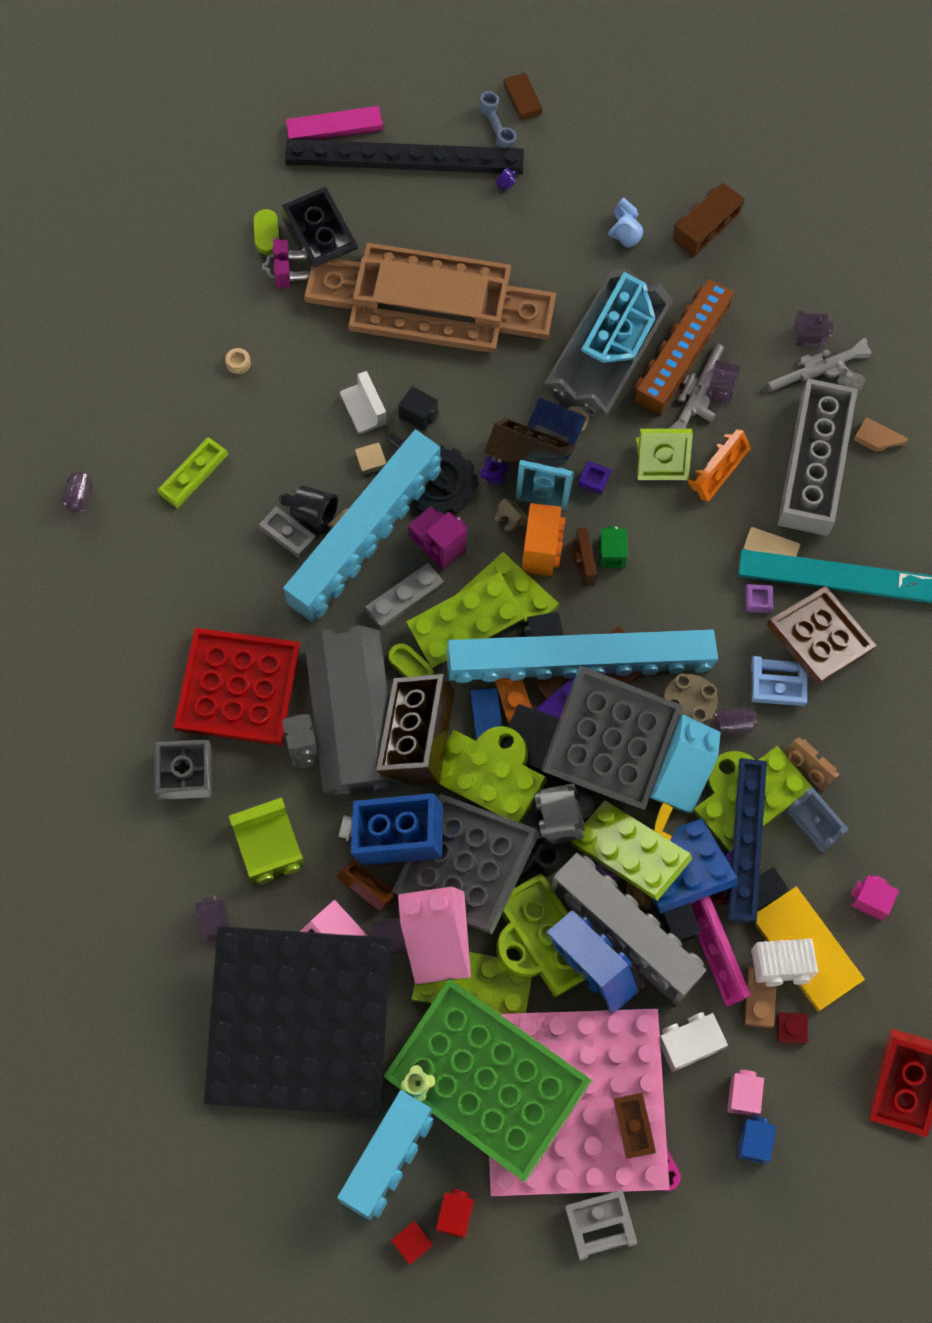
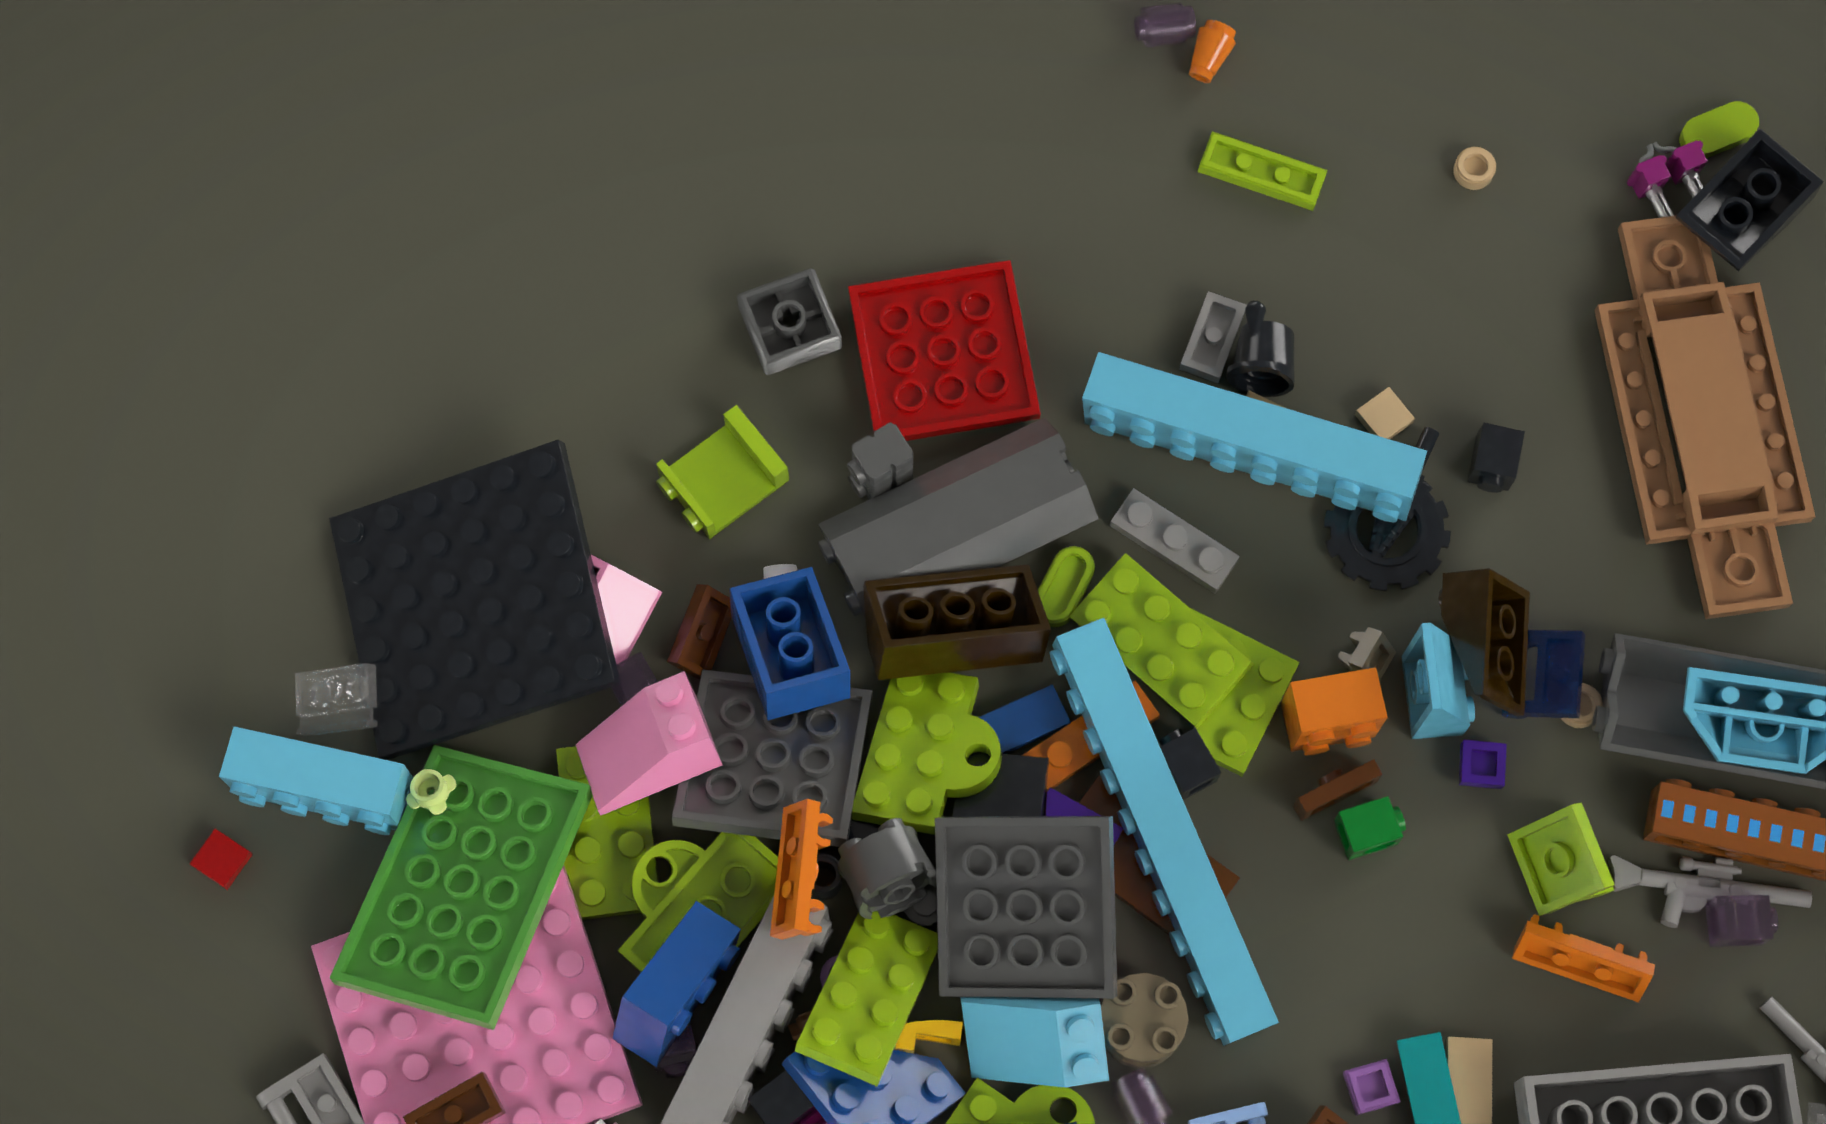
camera: 75 degrees right, 5 degrees up
(104, 472) = (1211, 49): none -> orange cone
(210, 914) = (587, 438): clear purple brick -> none
(332, 1131) = (336, 699): none -> clear plate
(364, 405) = (1472, 375): white panel -> none
(439, 536) = (1283, 556): magenta brick -> none
(455, 1213) = (271, 903): red brick -> none
(489, 475) = (1425, 612): dark purple plate -> none
(551, 860) = (798, 870): none -> orange plate

